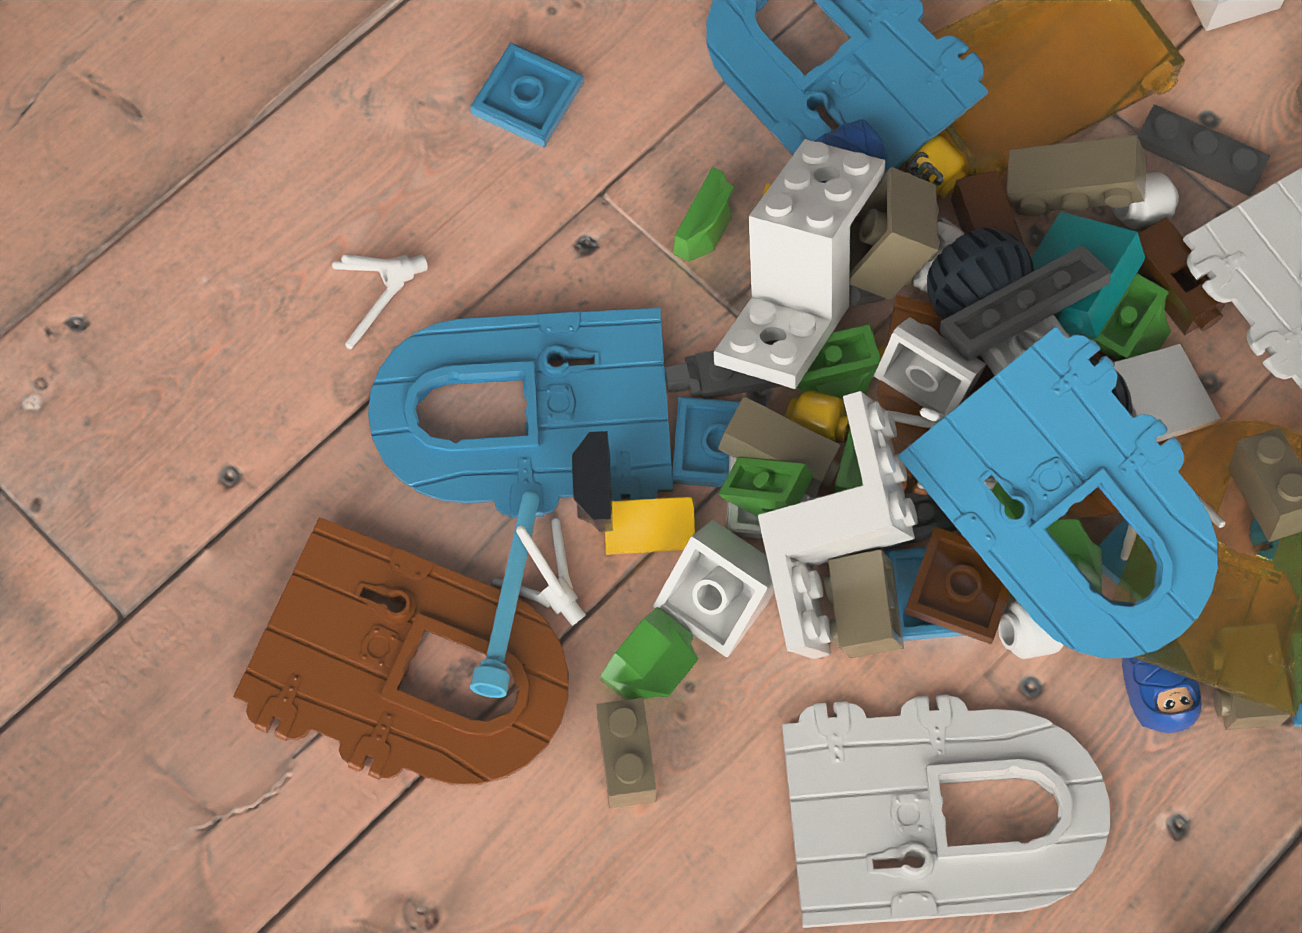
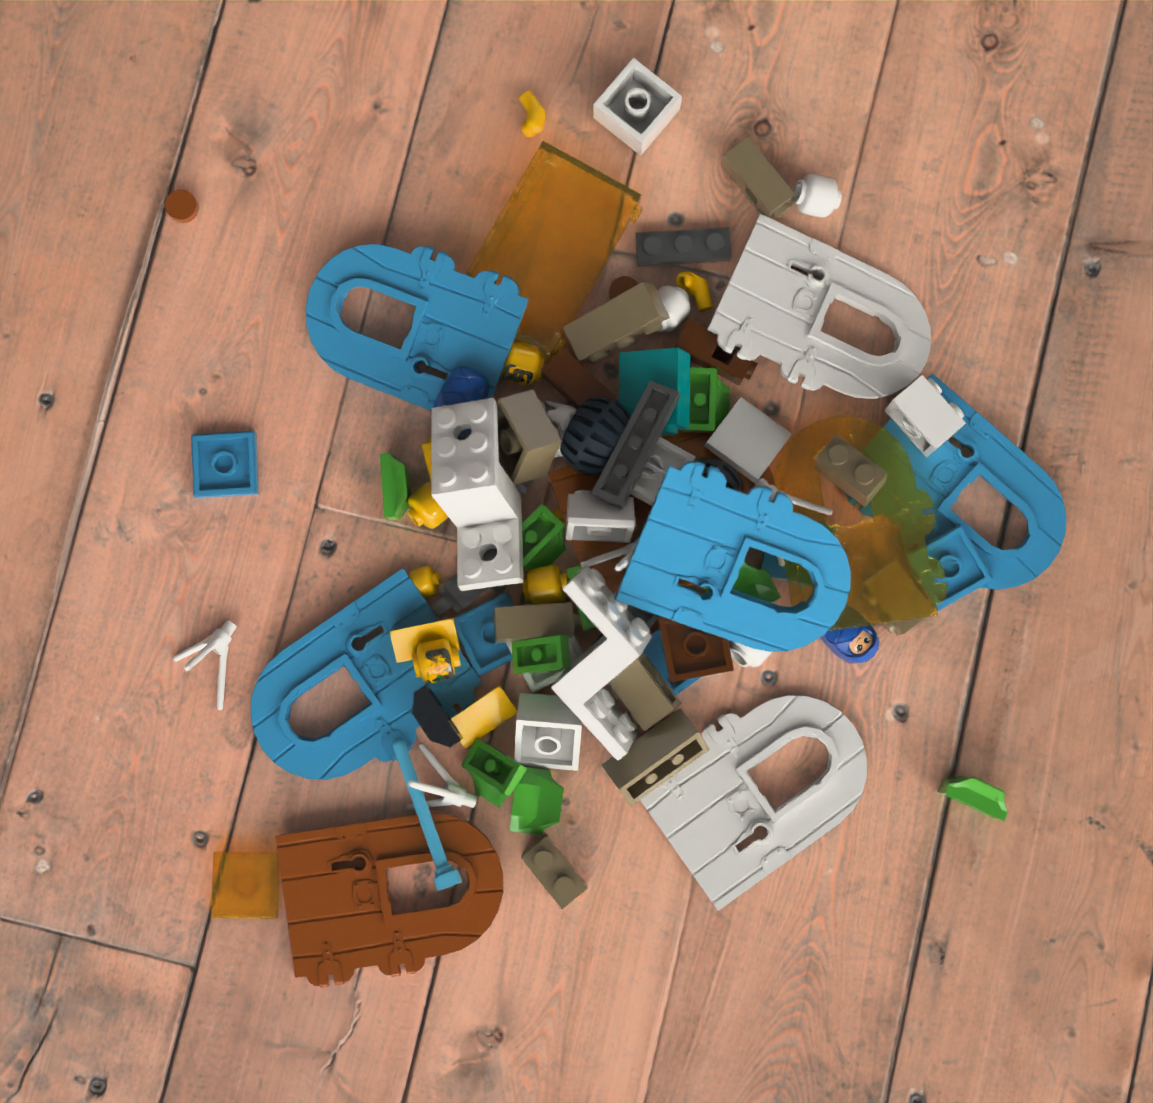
camera: 30 degrees left, 15 degrees up
(246, 556) = (245, 885): none -> clear yellow tile
(623, 592) = (492, 772): none -> bright green slope
(635, 423) = (435, 661): none -> yellow head
(636, 396) = (407, 639): none -> yellow slope
(678, 341) = (426, 580): none -> yellow piece
(729, 259) = (425, 508): none -> yellow head
(835, 688) = (656, 757): none -> dark tan brick
(1193, 199) = (696, 287): none -> yellow arm

